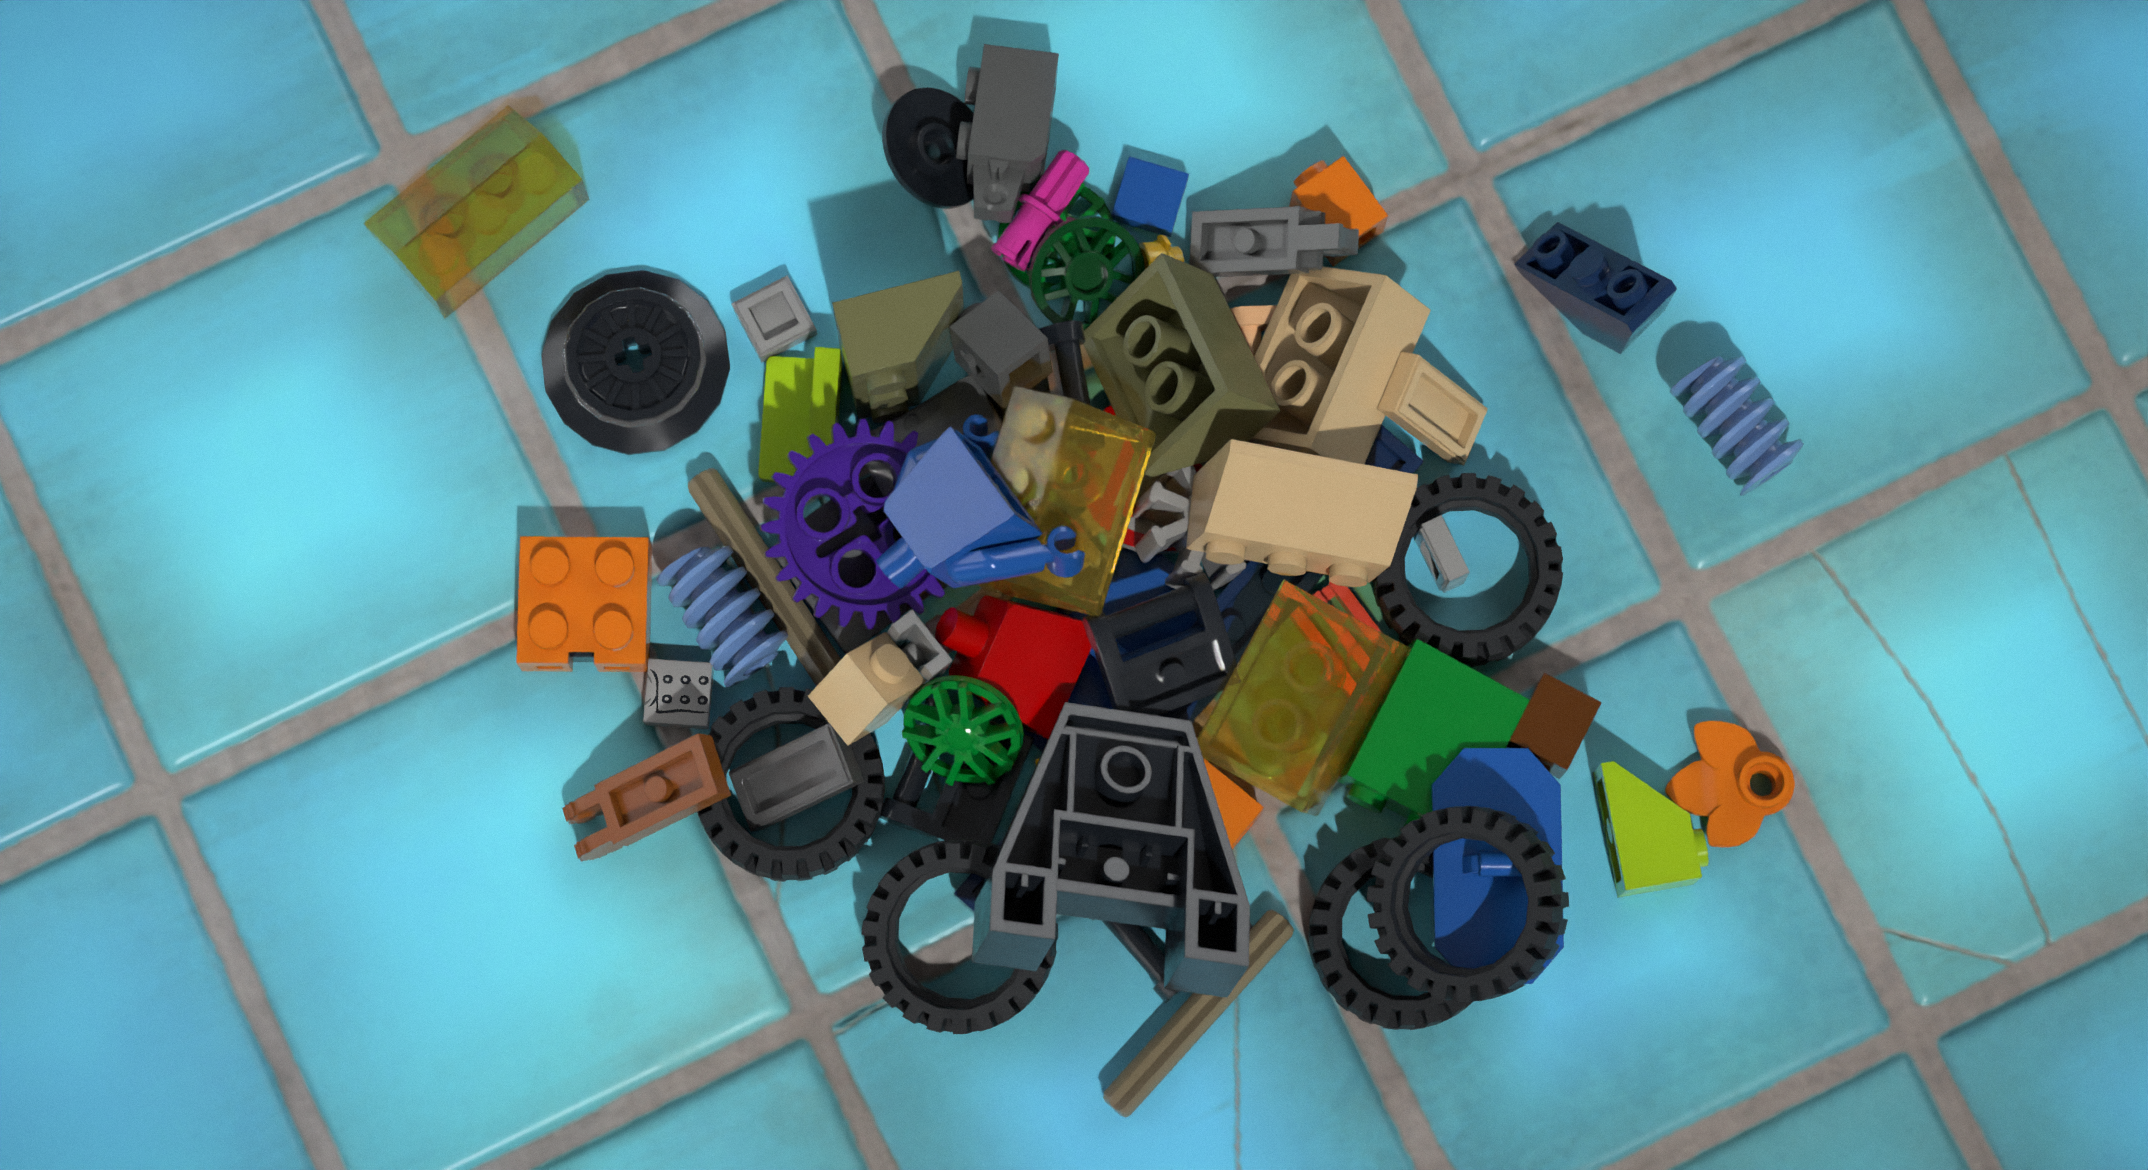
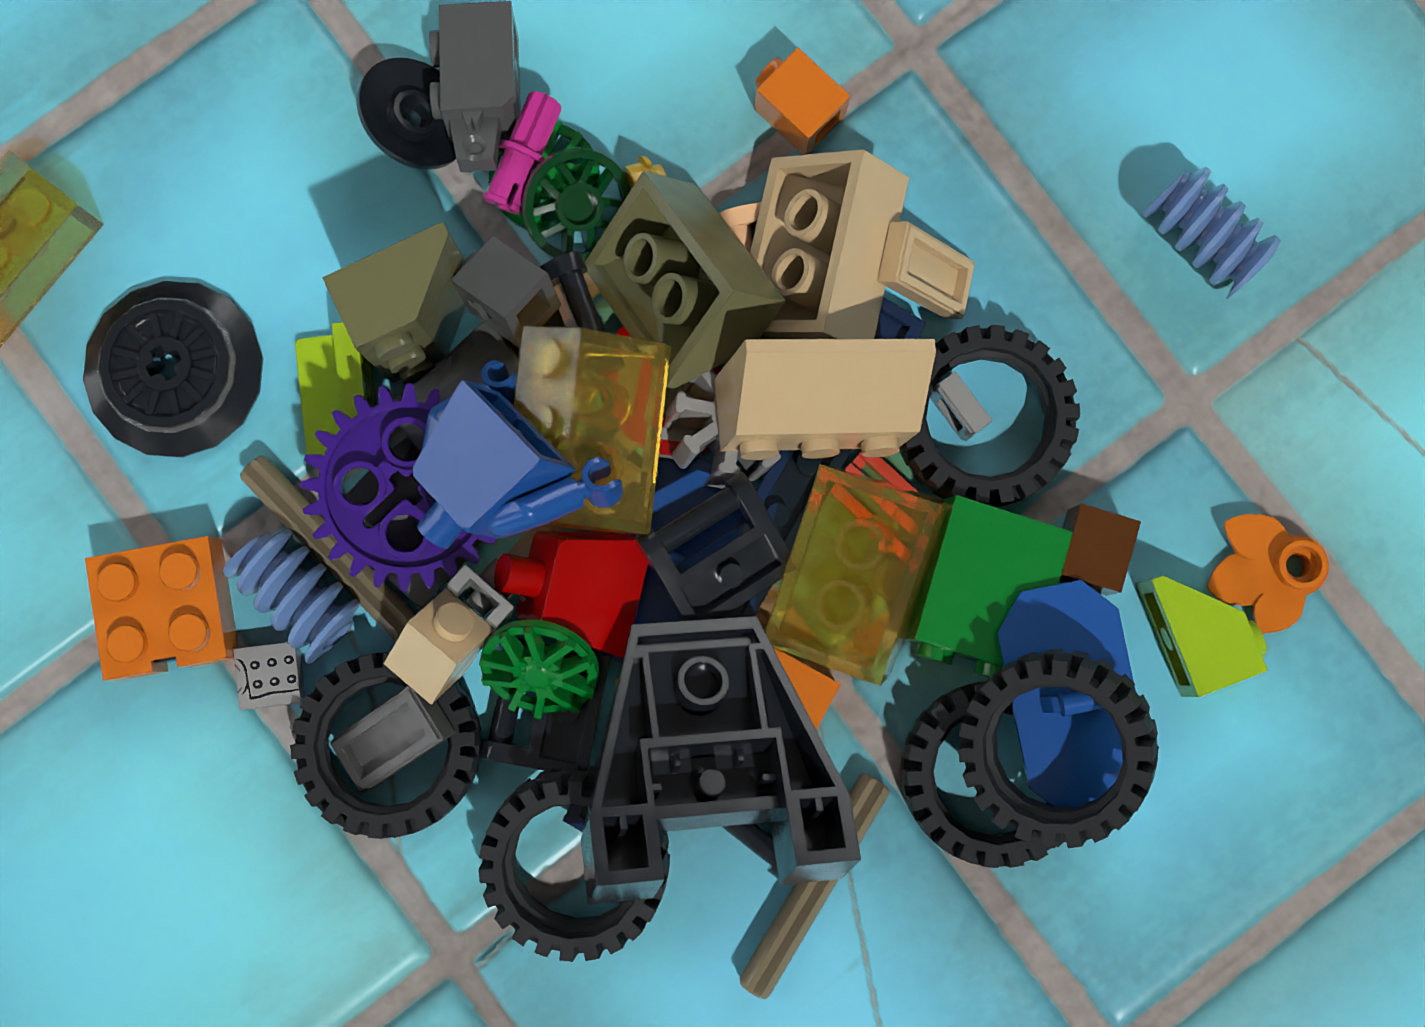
camera: 10 degrees left, 5 degrees up
(650, 796) = (254, 785): dark orange hinge -> none
(774, 318) = (294, 303): light grey tile -> none
(1149, 196) = (623, 123): blue tile -> none
(1266, 241) = (742, 141): dark grey hinge -> none
(1595, 286) = (1058, 128): dark blue slope -> none

